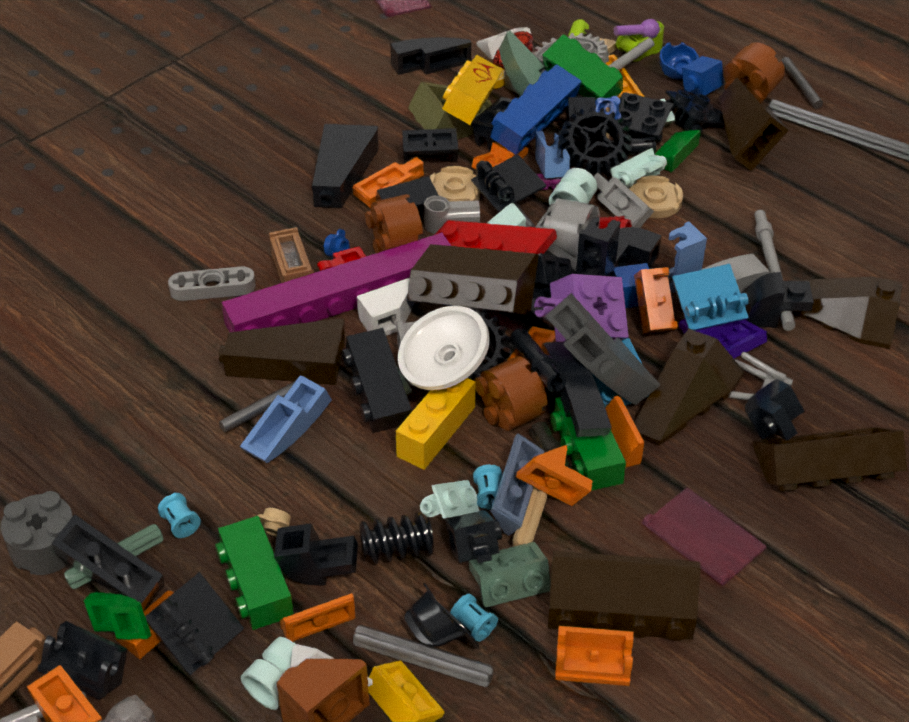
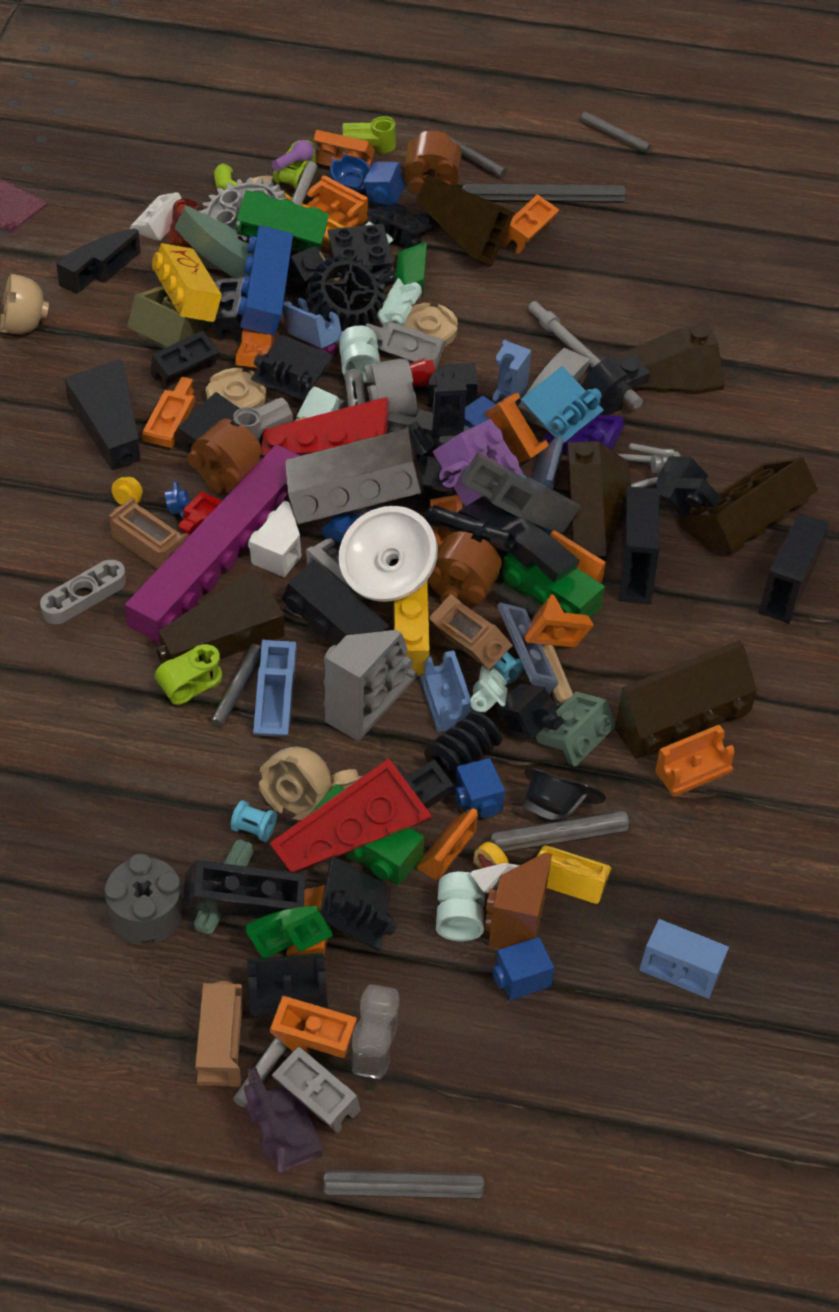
camera: 35 degrees left, 5 degrees up
(229, 379) = (187, 676): none -> lime piece
(234, 494) = (295, 781): none -> tan cylinder
(243, 548) = (357, 816): none -> red wing
(306, 224) = (125, 489): none -> yellow plate
(339, 644) = (489, 855): none -> yellow tile
(341, 65) = (22, 306): none -> tan cylinder
(350, 442) = (365, 679): none -> light grey wedge
(379, 582) = (479, 788): none -> blue brick
(420, 485) = (445, 691): none -> medium blue hinge
(473, 446) = (470, 632): none -> medium nougat window
(474, 617) = (579, 774): medium azure bush -> none
(613, 103) = (334, 246): blue plate -> none
(652, 77) = (340, 202): none -> orange hinge
(662, 350) = (548, 463): none -> sand blue slope
(680, 33) = (336, 146): none -> orange bracket
(691, 441) = (639, 545): none -> black slope
(704, 536) = (696, 619): clear pink piece -> none
(728, 39) = (379, 133): none -> lime piece
(804, 145) = (529, 221): none -> orange hinge
(827, 526) = (793, 568): none -> black slope

